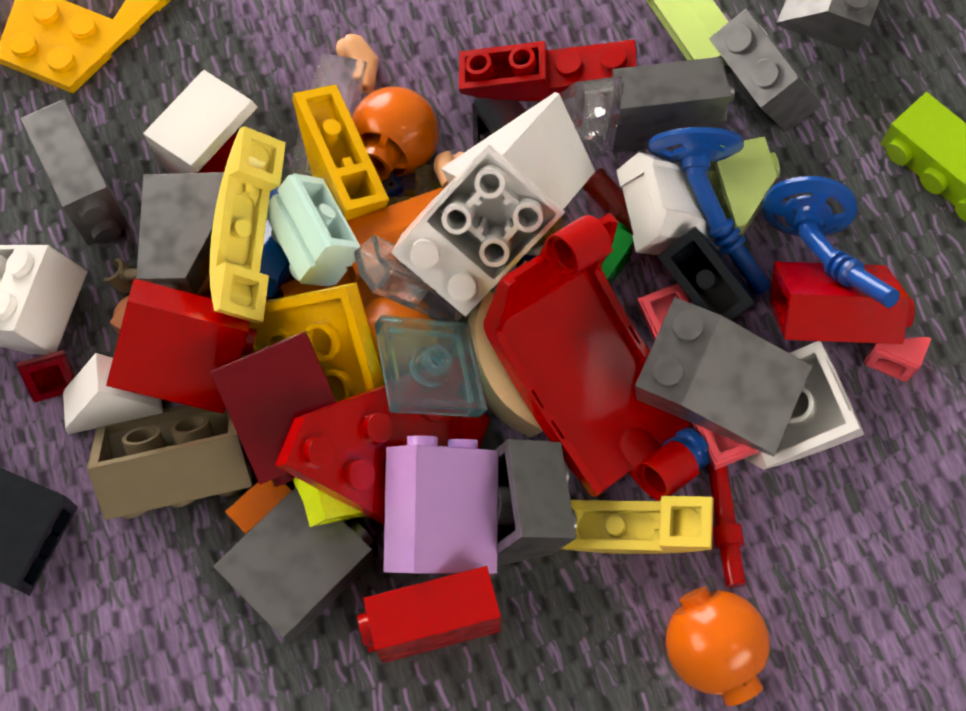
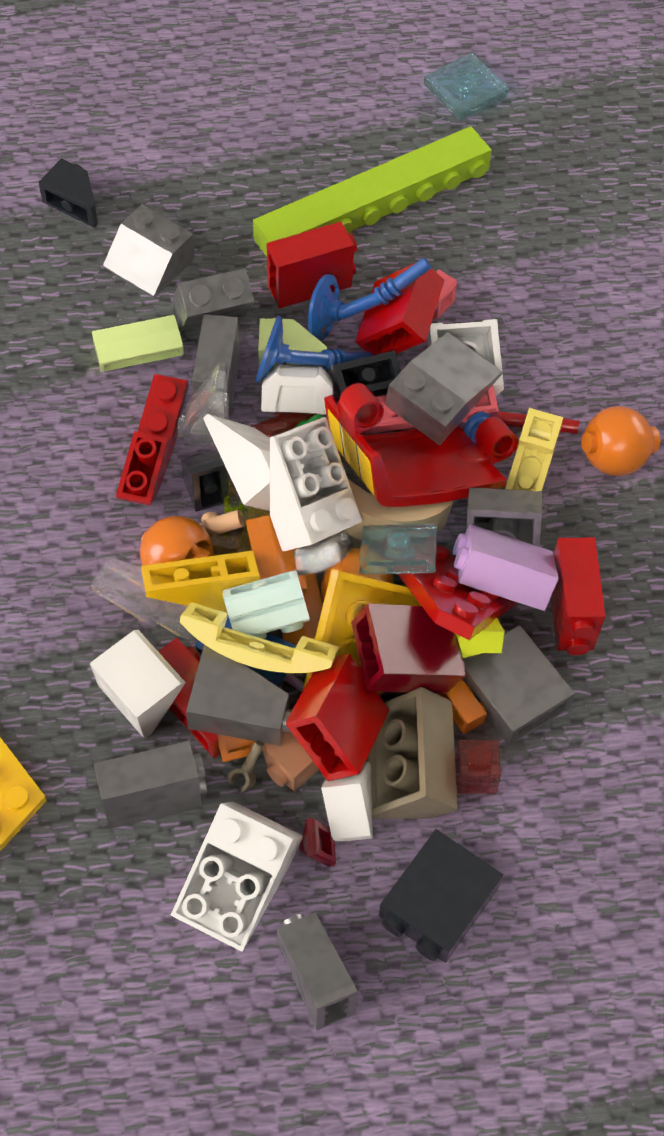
camera: 80 degrees left, 10 degrees down
(166, 535) = (478, 767): none -> clear red brick
(356, 47) = (83, 570): light nougat arm -> none
(881, 171) = (302, 259): none -> red brick

